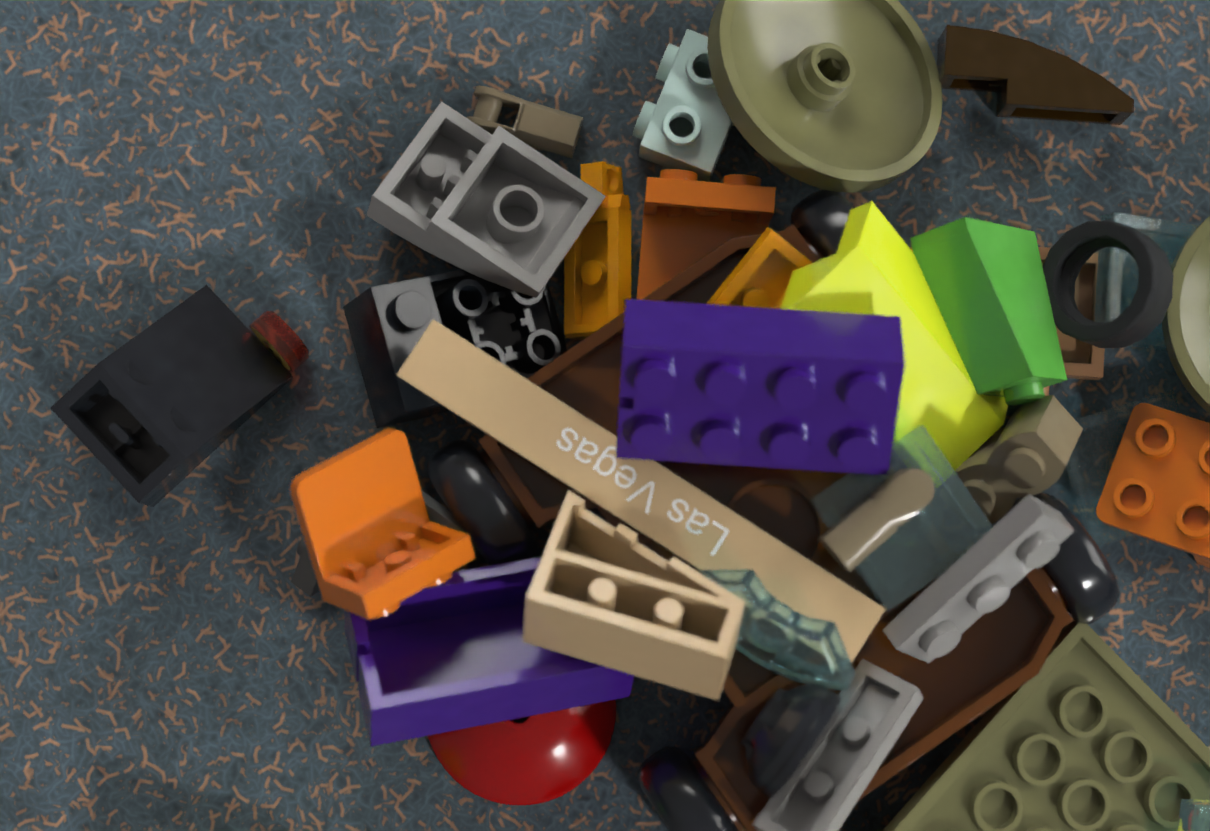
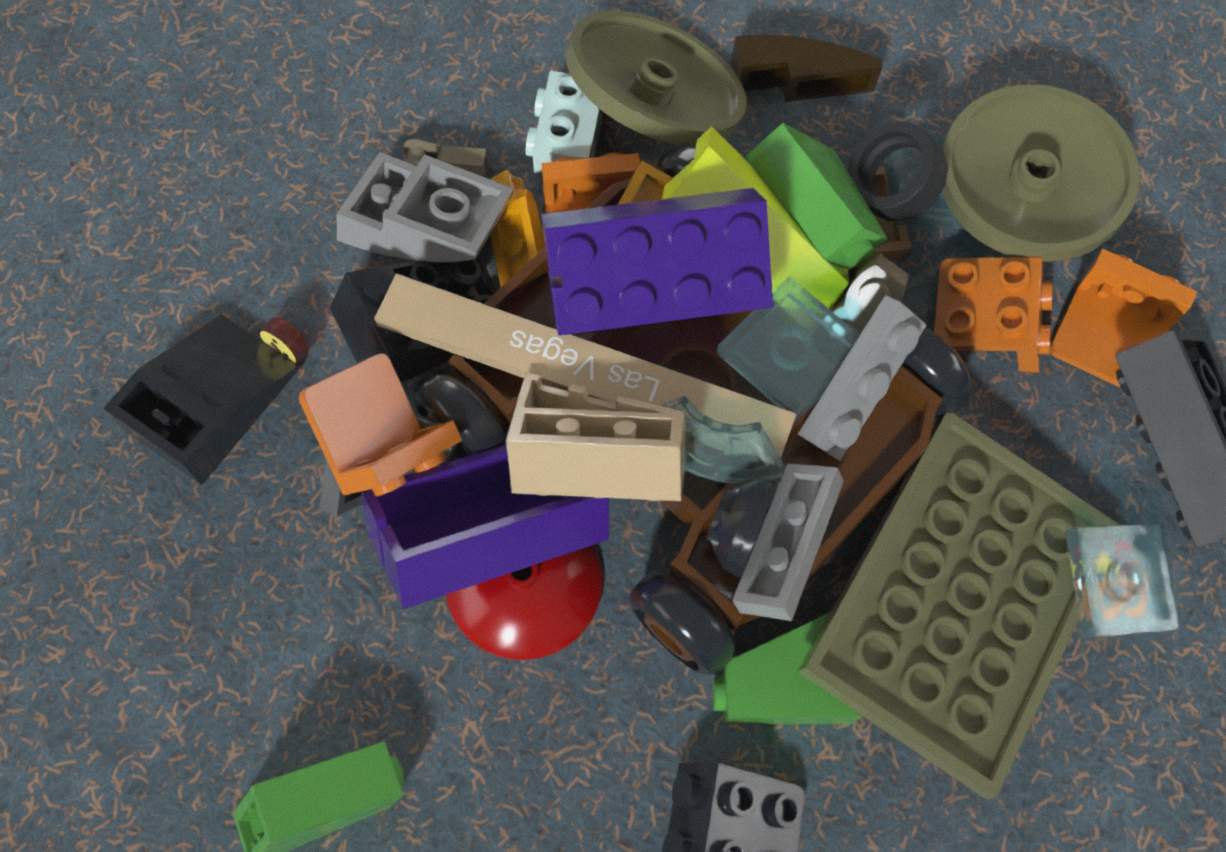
camera: 10 degrees left, 15 degrees down
(878, 516) = (772, 341): dark tan bar -> none

